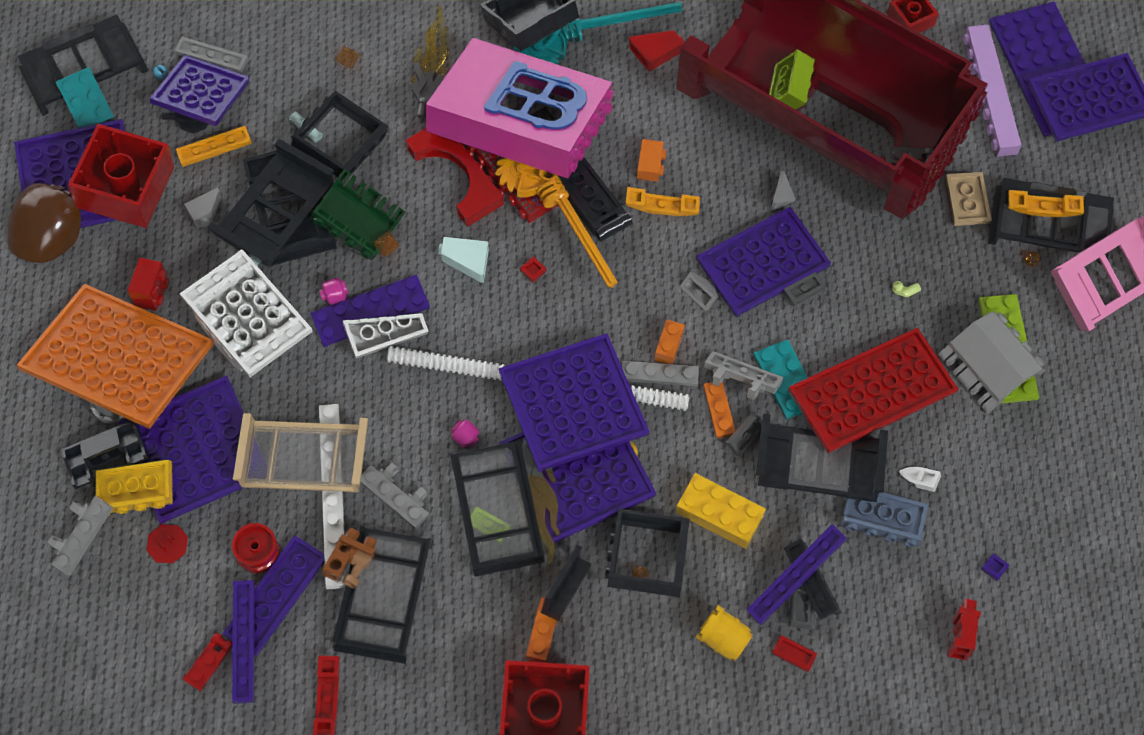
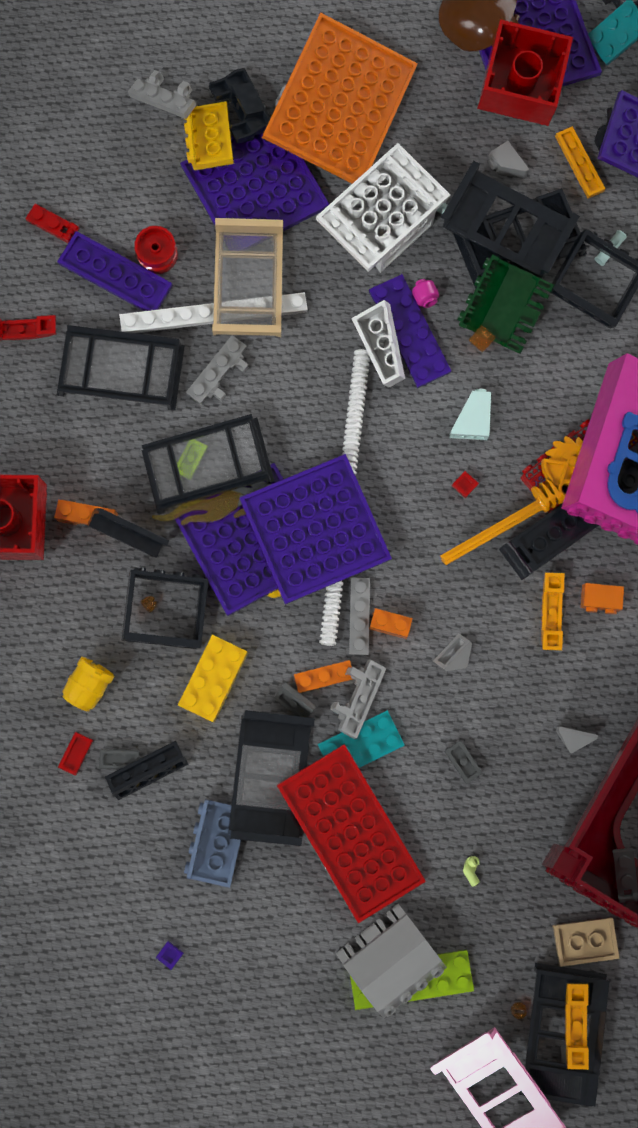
camera: 85 degrees right, 15 degrees up
(148, 284) = (417, 119): red brick -> none
(167, 544) = (162, 174): red piece -> none
(243, 642) = (66, 248): dark purple plate -> none
(352, 552) = (147, 331): dark orange hips -> none
(465, 434) = (281, 430): dark pink head -> none
(482, 193) = (545, 427): red arch -> none
(762, 261) = (493, 719): dark purple plate -> none
(796, 574) = (146, 753): dark purple plate -> none
(922, 477) = (259, 881): white plate -> none
(964, 631) = (96, 921): red hips -> none

